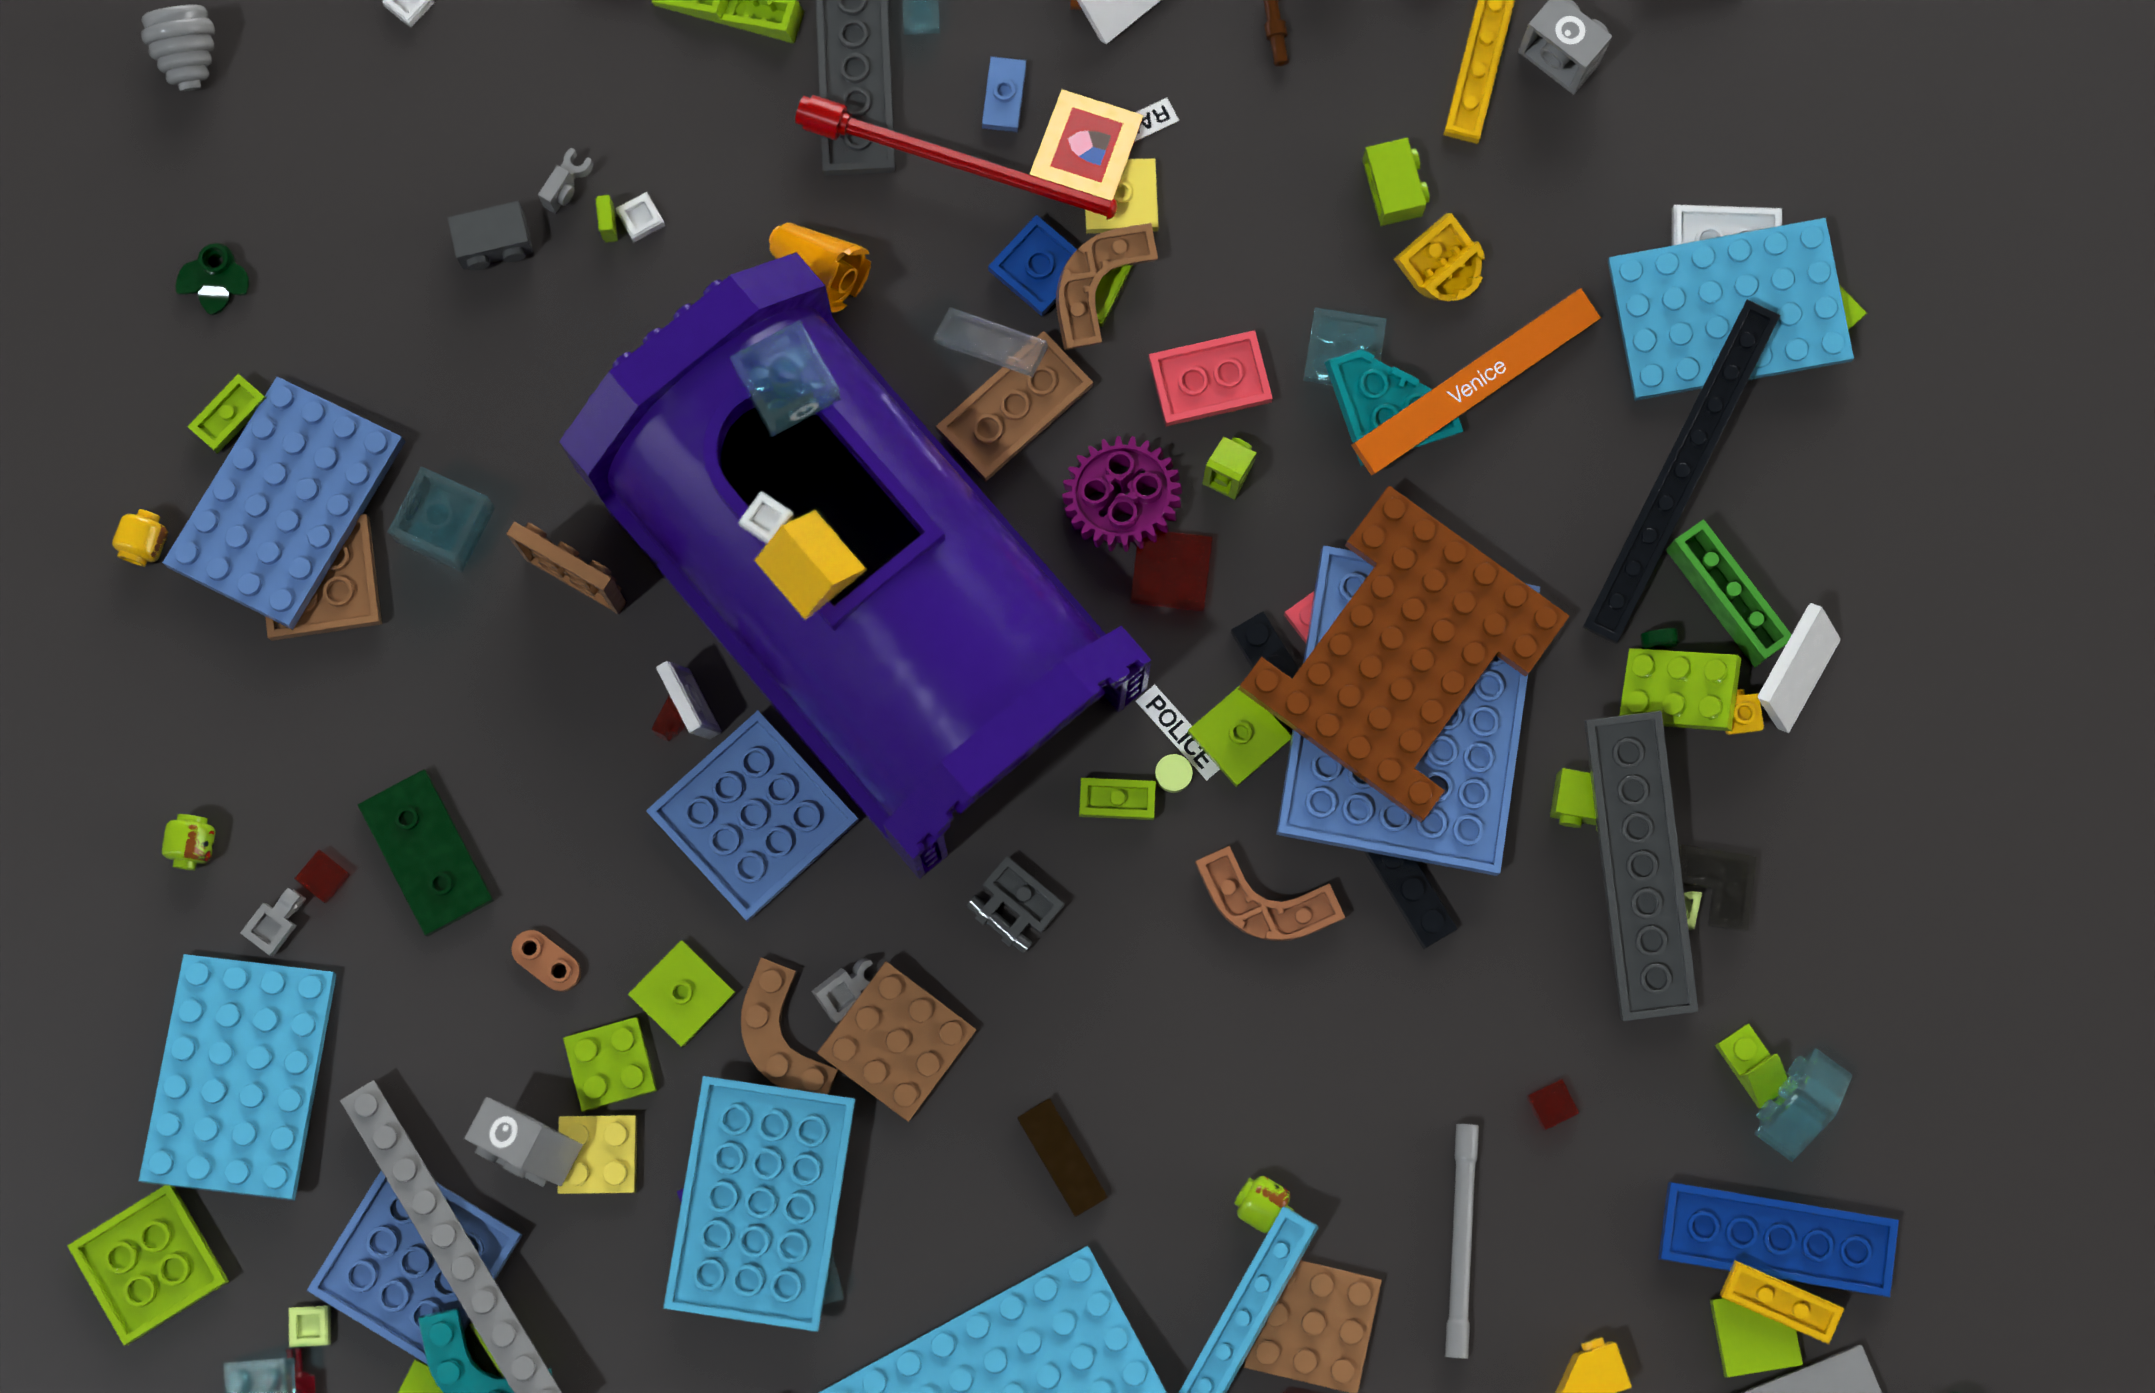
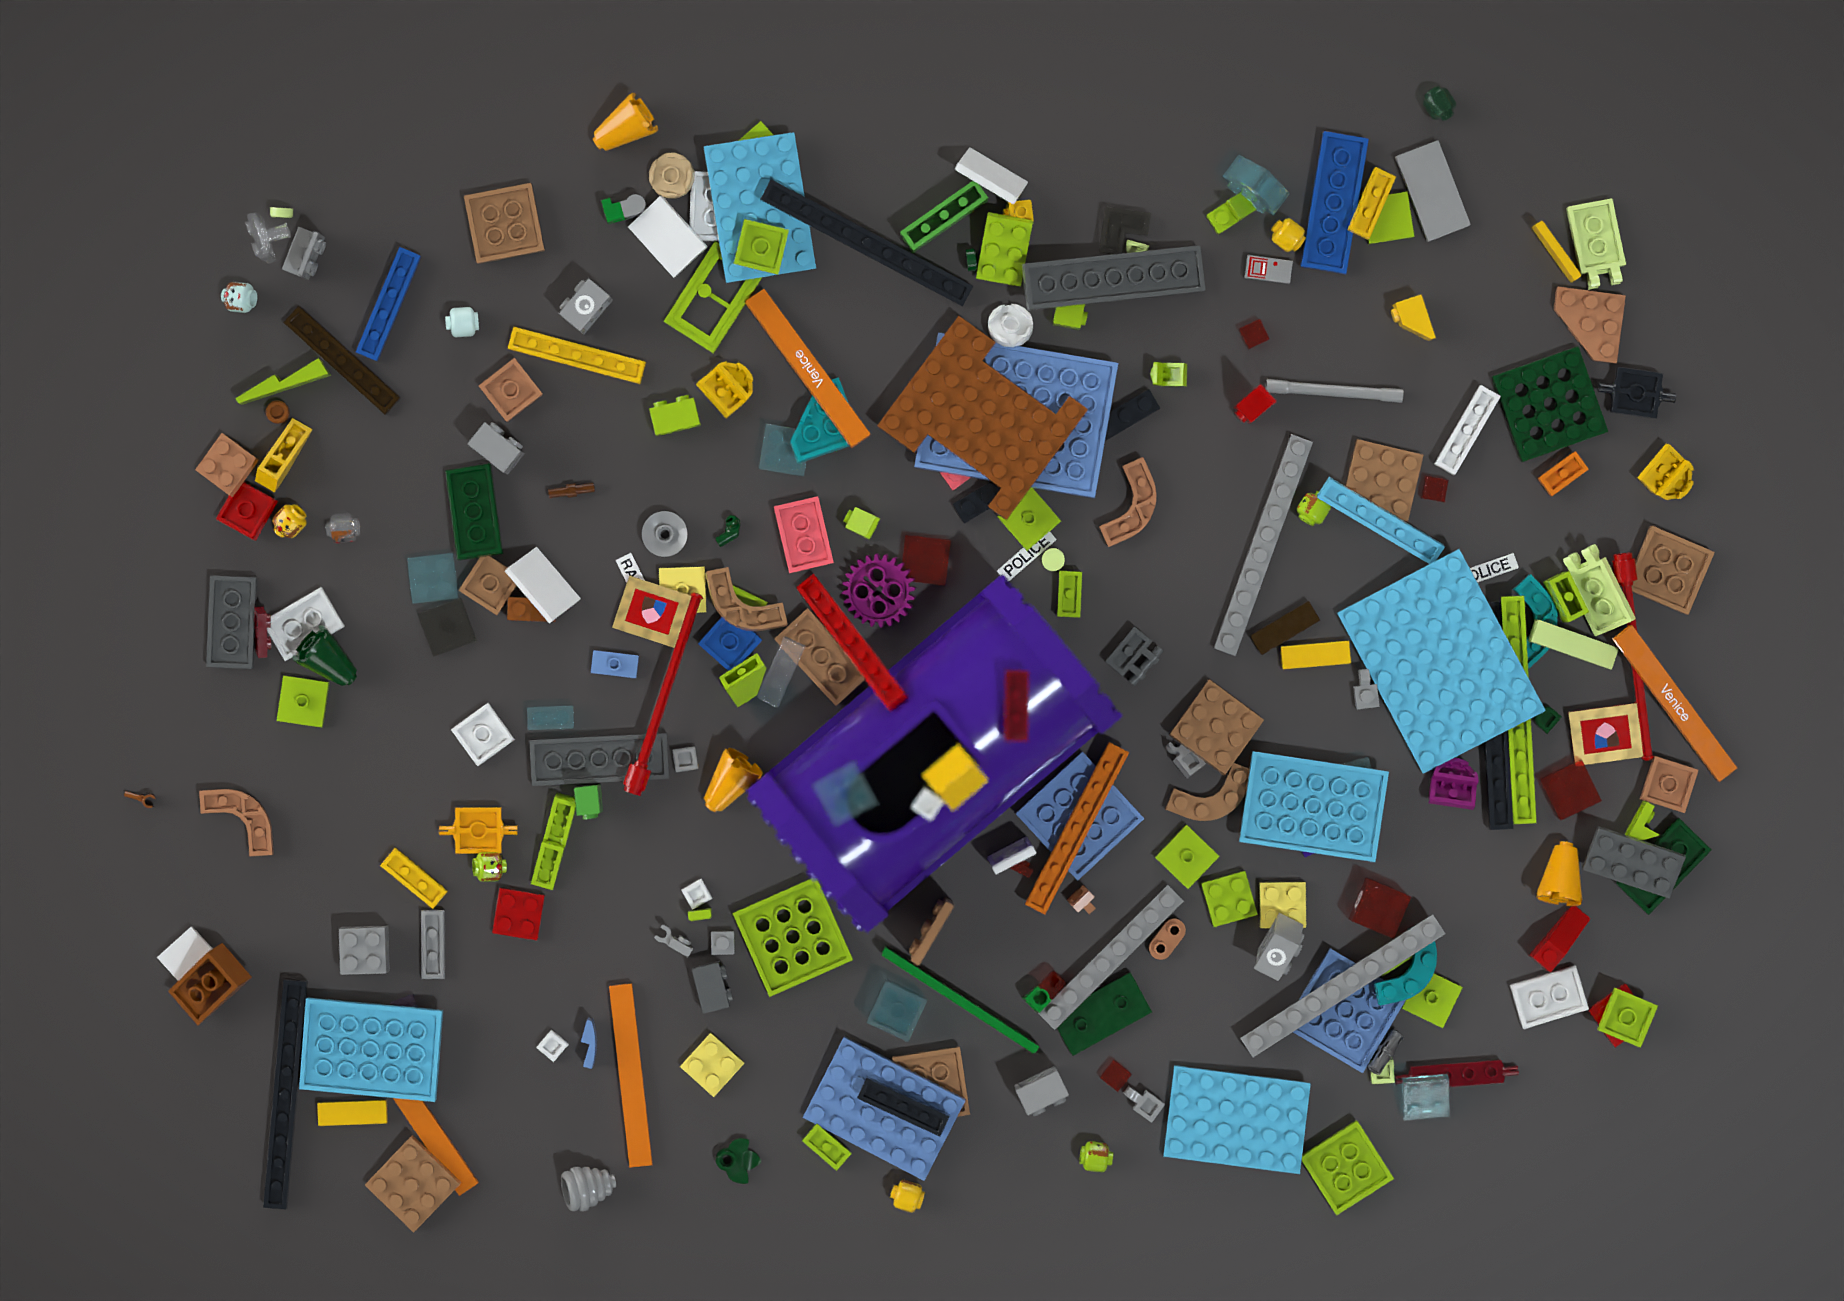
camera: 85 degrees left, 10 degrees up
(281, 524) = (903, 1106): none -> black plate
(298, 749) = (1041, 1091): none -> light grey brick
(340, 1330) = (1385, 1052): none -> flat silver pin
(356, 117) = (630, 1075): none -> orange tile
(368, 240) = (712, 1064): none -> light yellow plate
(417, 54) = (590, 1037): none -> medium blue slope
(450, 629) = (960, 1000): none -> green tile
(464, 758) = (1044, 991): none -> leg
(518, 867) = (1111, 957): none -> light grey plate
(544, 352) = (796, 972): none -> lime piece
(561, 256) = (722, 942): none -> light grey plate
(586, 1319) = (1379, 908): none -> clear red brick
(613, 819) = (1081, 899): none -> nougat tile
(732, 808) = (1076, 828): none -> orange tile
(788, 46) = (588, 801): none -> bright green brick
(853, 200) = (685, 759): none -> light grey tile
(930, 663) = (1016, 705): none -> dark red plate
(950, 1296) = (1366, 694): none -> light grey plate
(976, 280) = (744, 680): none -> lime slope
(1017, 1209) = (1315, 655): none -> yellow tile
(1035, 434) = (852, 642): none -> red tile
(1201, 1120) = (1263, 545): none -> light grey plate
(1213, 150) = (652, 534): none -> light grey dish
(1214, 270) = (731, 531): none -> dark green arm
(1437, 1098) = (1254, 404): none -> red slope
(1482, 960) = (1169, 374): none -> lime bracket
(1555, 701) = (1010, 325): none -> white tile
(1599, 218) = (704, 290): none -> lime door
(1661, 1128) = (1268, 269): none -> light grey tile
(1670, 304) = (761, 246): none -> lime plate
(1677, 171) = (667, 236): none -> white tile
(1716, 106) = (623, 210): none -> leg
(1721, 1159) = (1288, 235): none -> yellow head
(1773, 178) = (671, 175): none -> tan tile
(1853, 106) = (625, 124): none -> light orange cone

